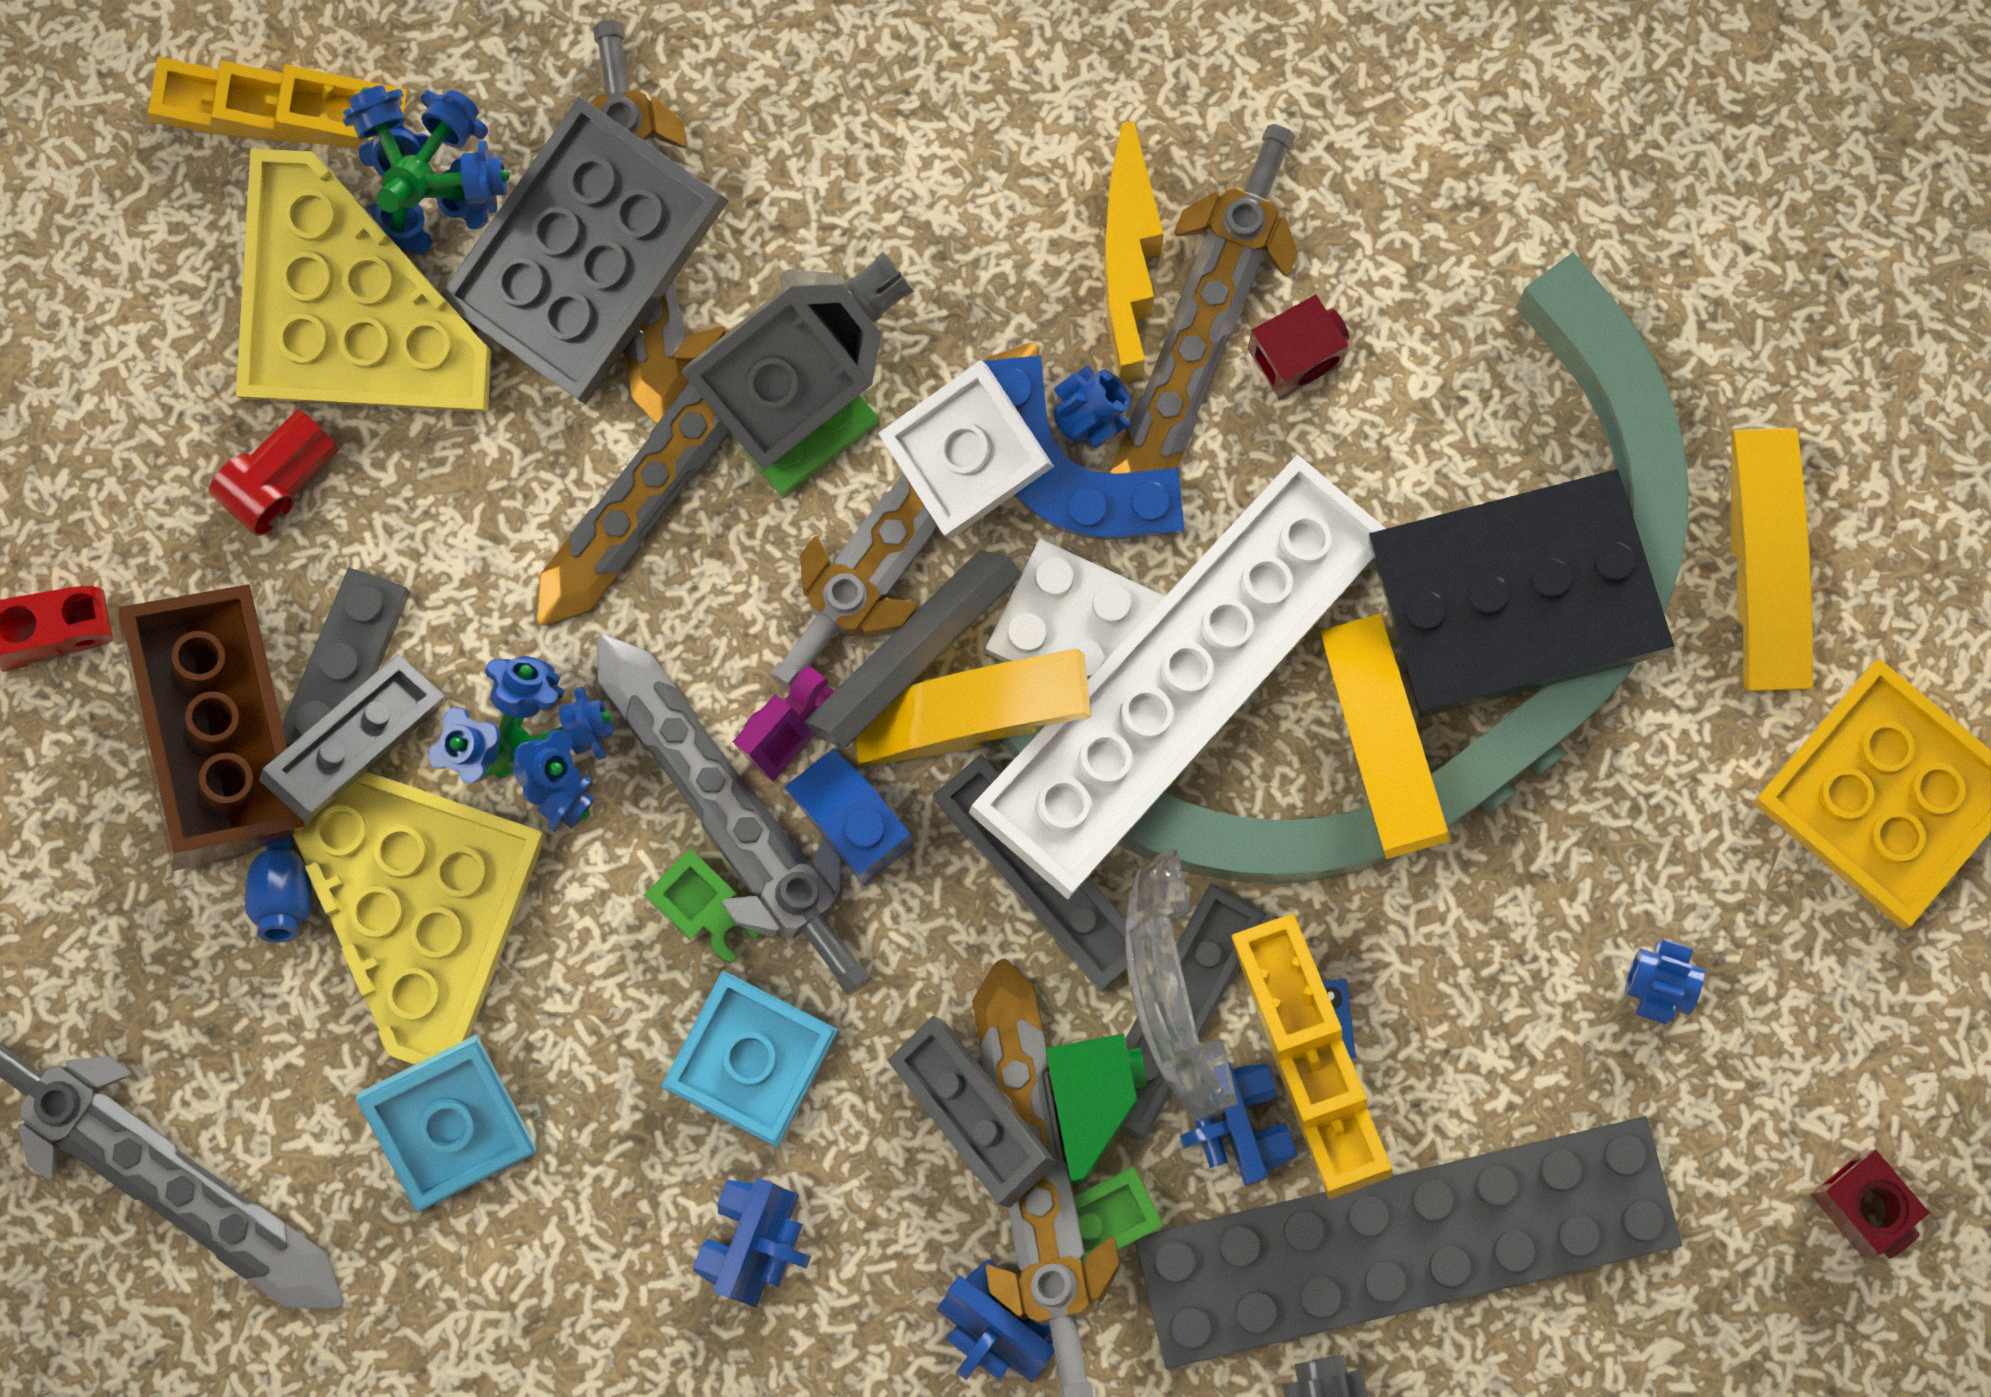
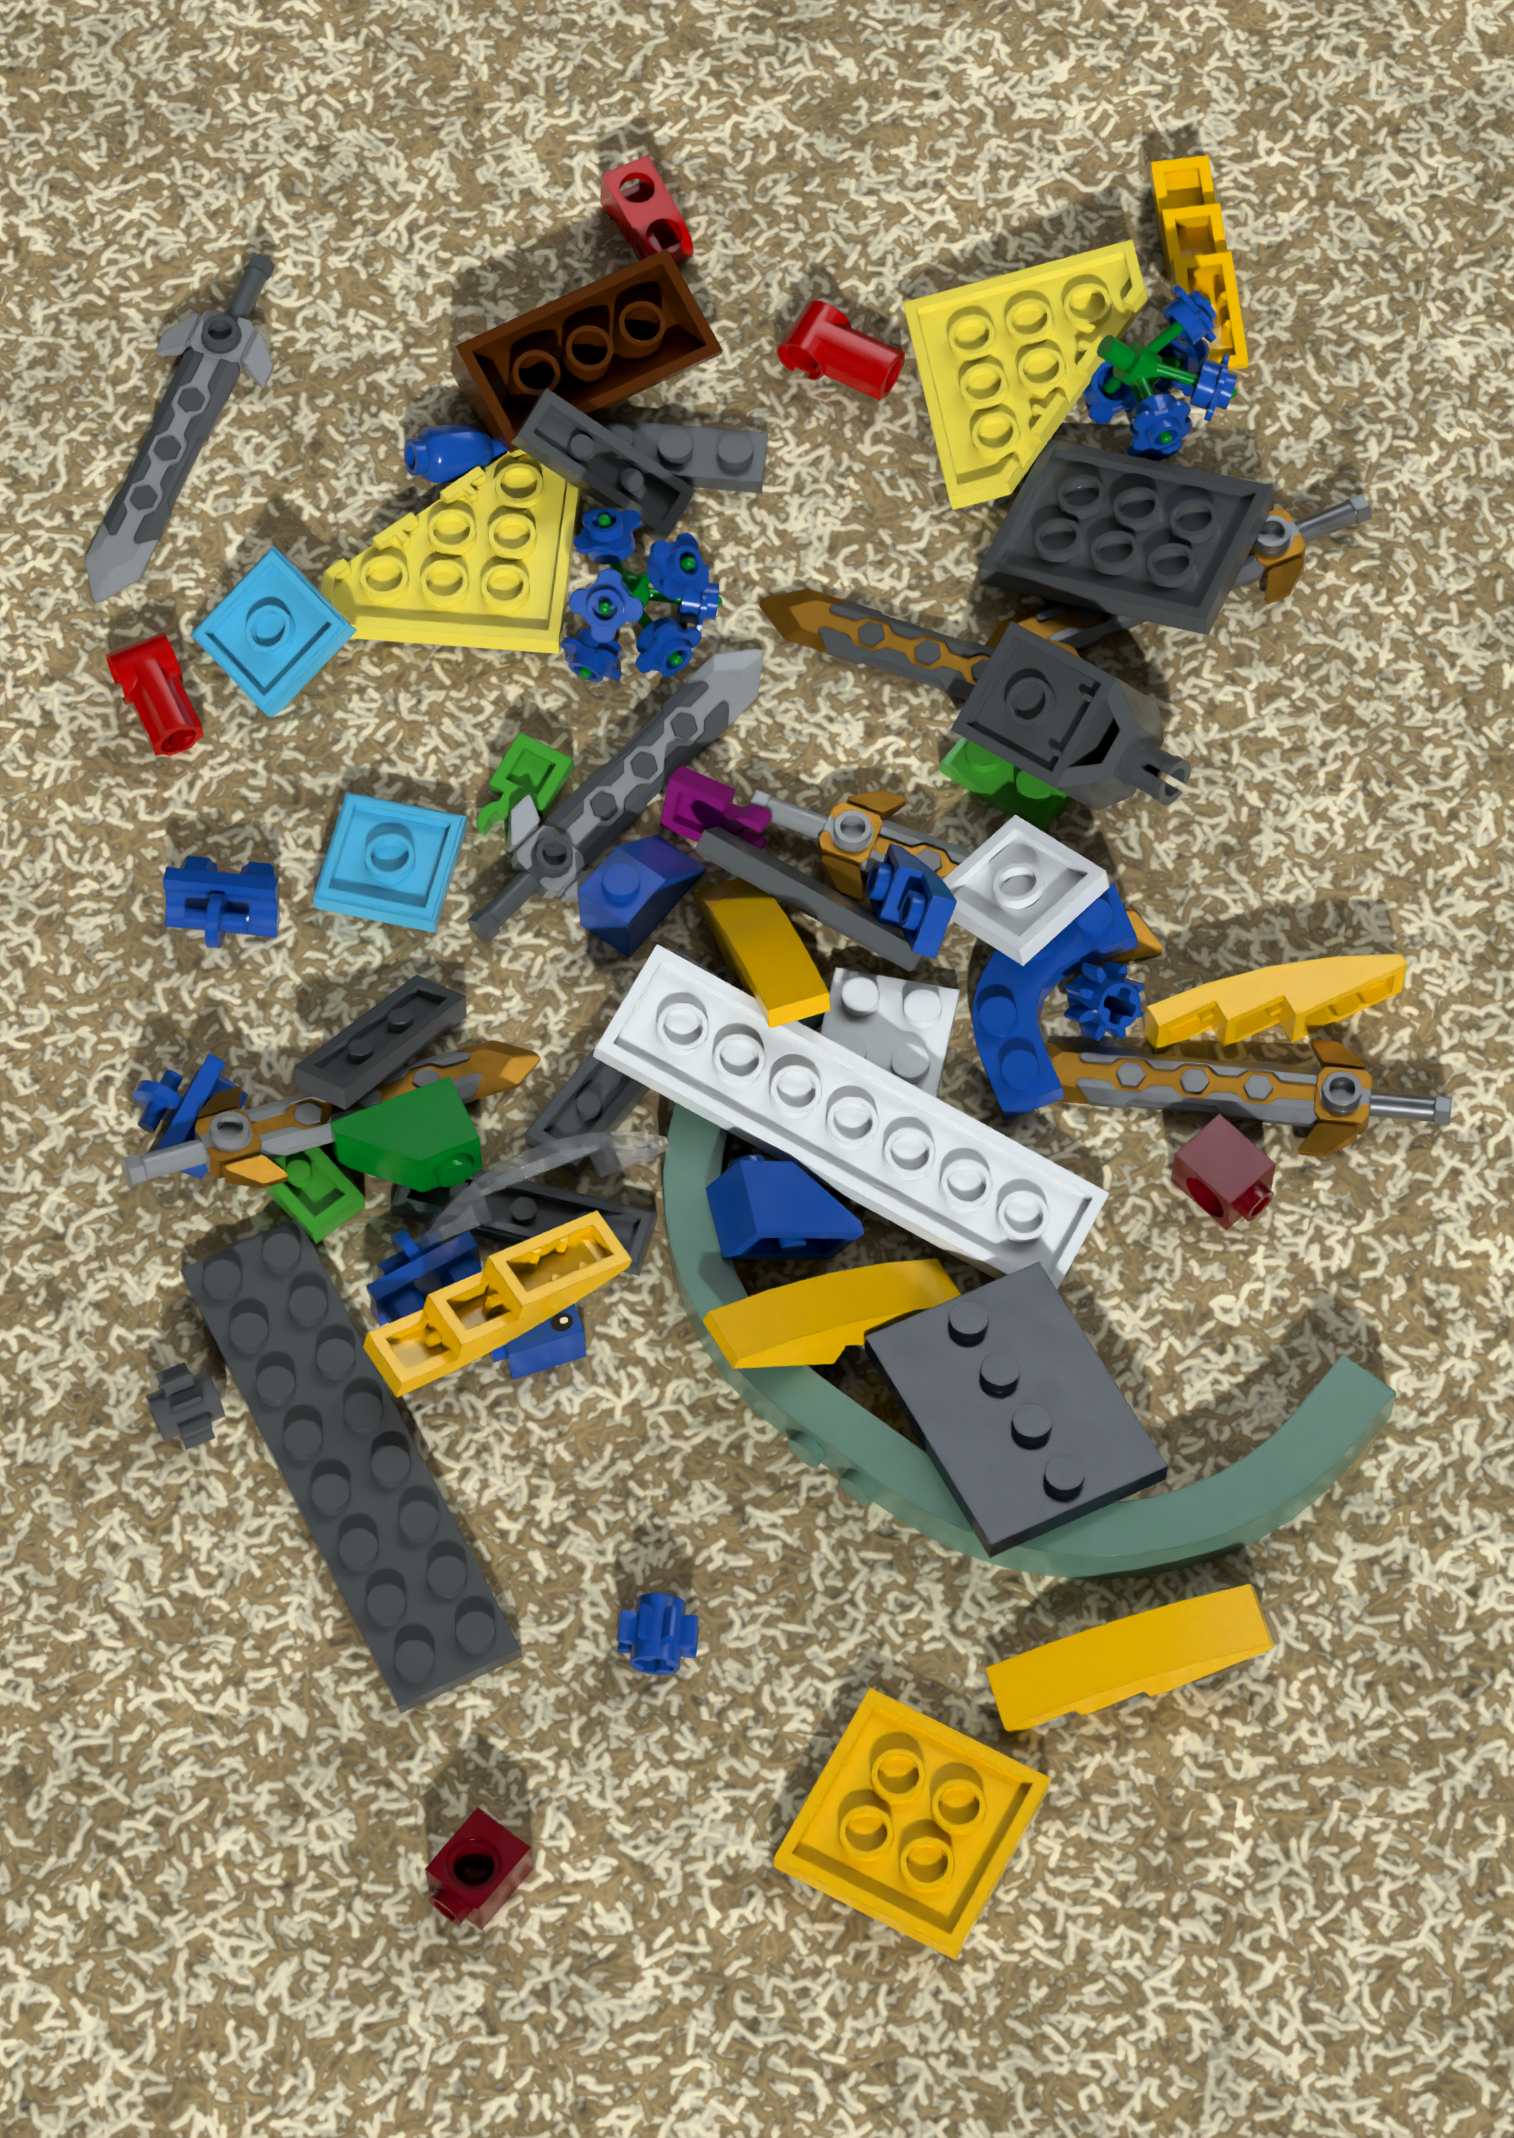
camera: 75 degrees right, 15 degrees down
(468, 1263) = (155, 690): none -> red piece
(943, 553) = (910, 898): none -> blue slope
(1264, 767) = (777, 1213): none -> blue slope

